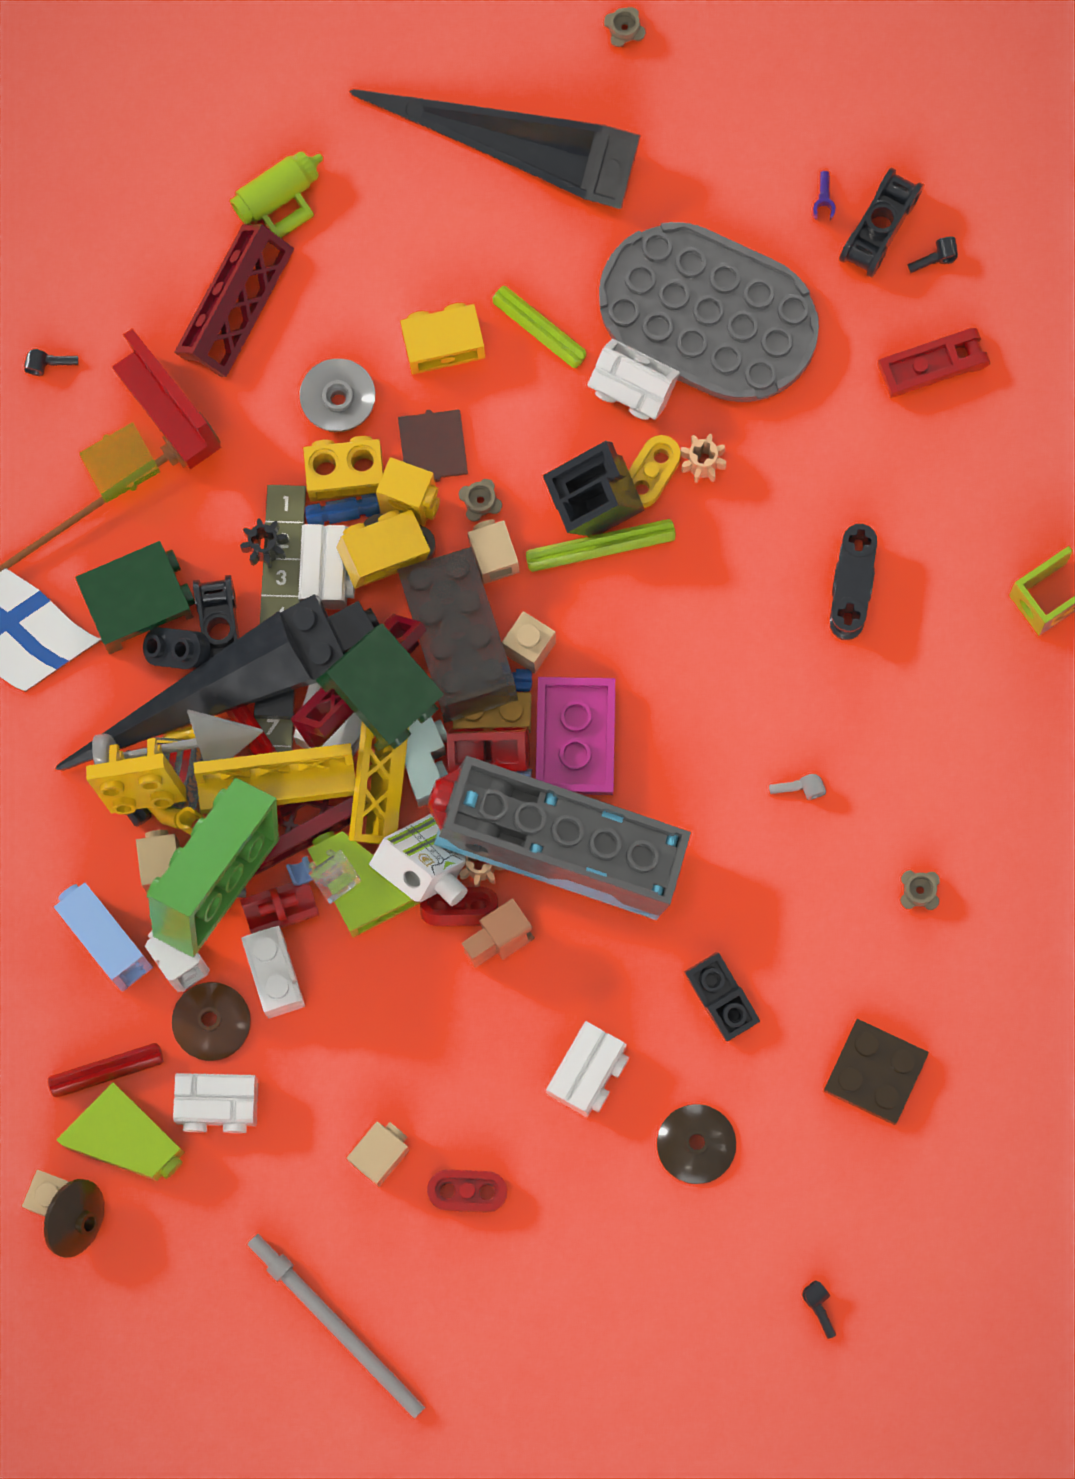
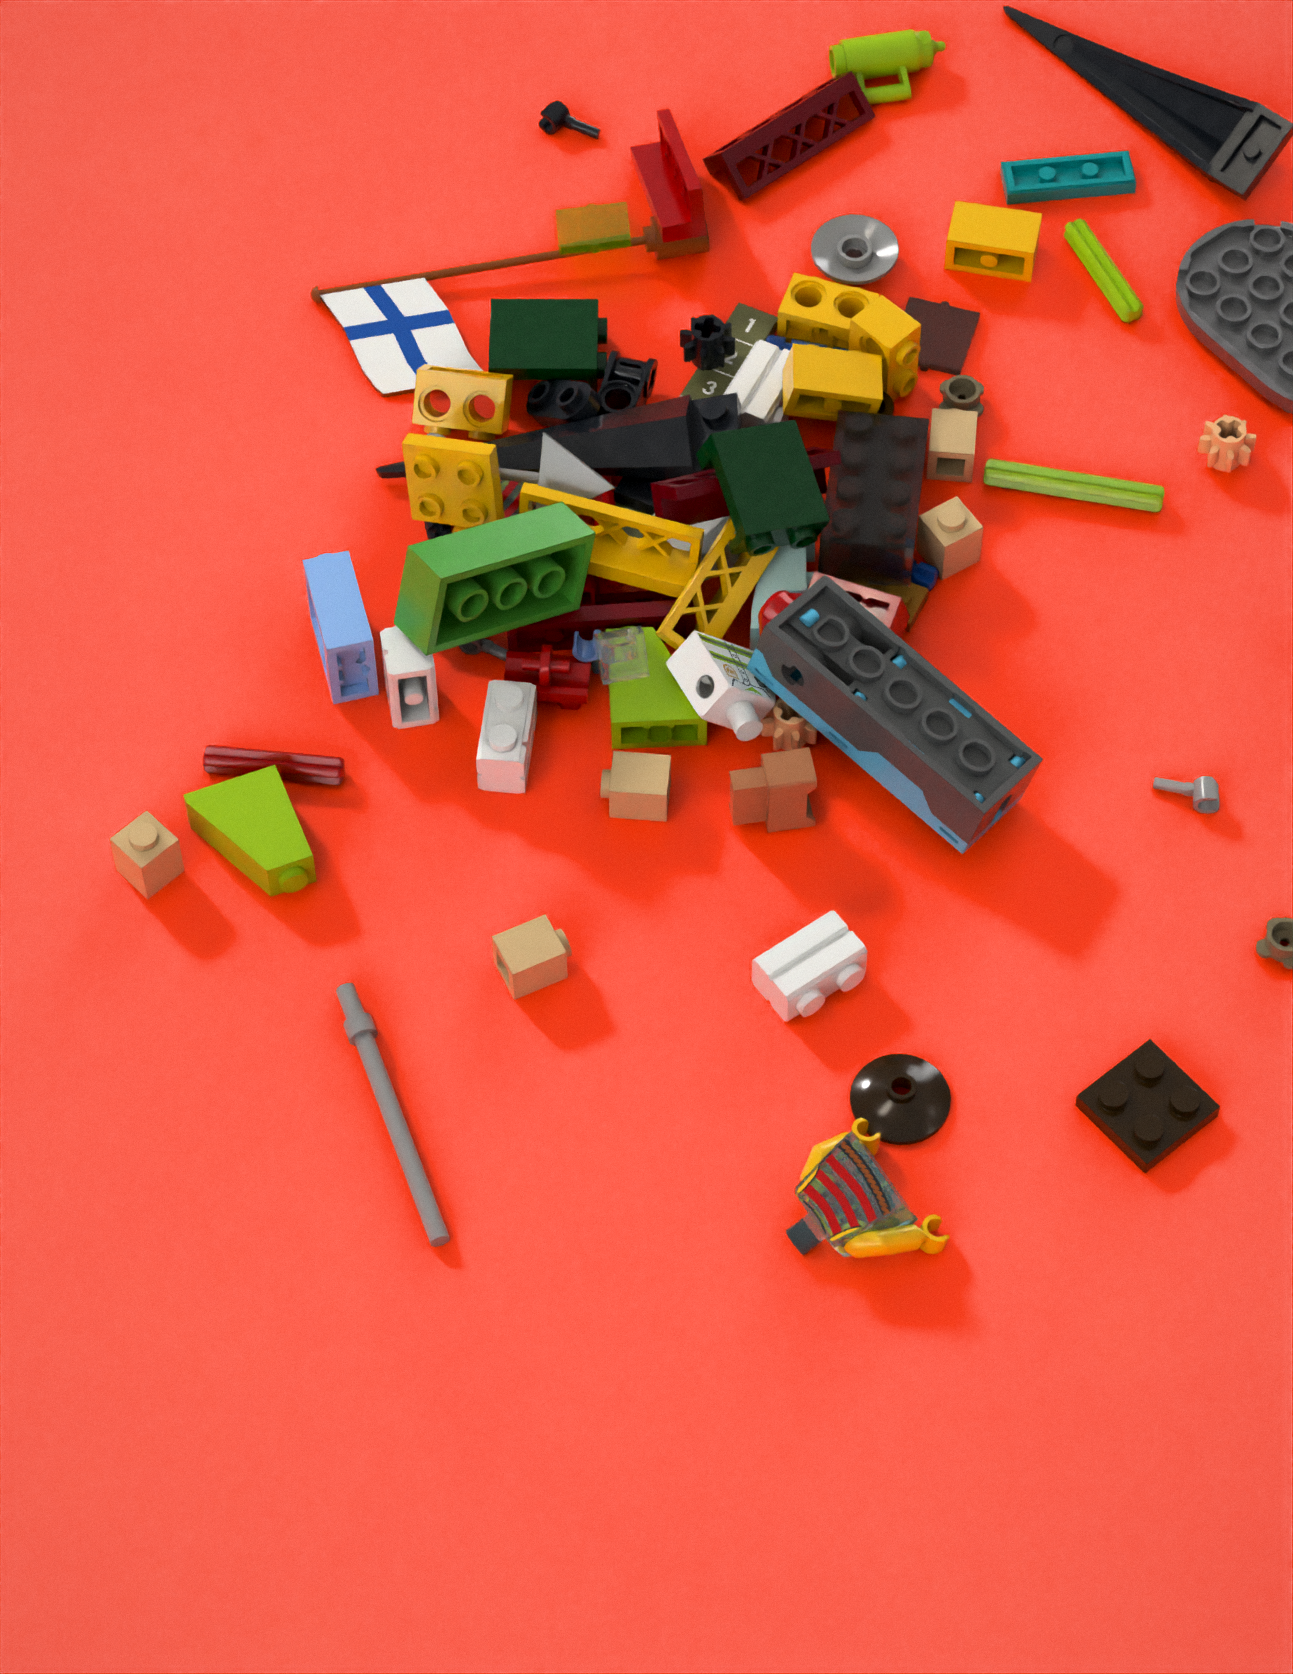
camera: 20 degrees right, 20 degrees down
(74, 1218) = (145, 873): dark brown dish -> none
(93, 672) = (462, 388): none -> yellow brick
(213, 1041) = (414, 782): reddish brown dish -> none
(215, 1101) = (377, 835): white brick -> none
(390, 970) = (637, 786): none -> tan brick
(467, 1191) = (614, 1034): red plate -> none
(468, 912) = (726, 752): red plate -> none
(473, 244) = (1067, 177): none -> teal tile
(576, 734) = (967, 633): dark pink plate -> none
(594, 491) = (1091, 421): black plate -> none
(633, 380) = (1182, 343): white brick -> none
(651, 473) = (1159, 439): yellow plate -> none
(704, 1253) = (856, 1202): none -> torso
(721, 996) = (1001, 958): black slope -> none
(814, 1296) = (964, 1306): black hand -> none

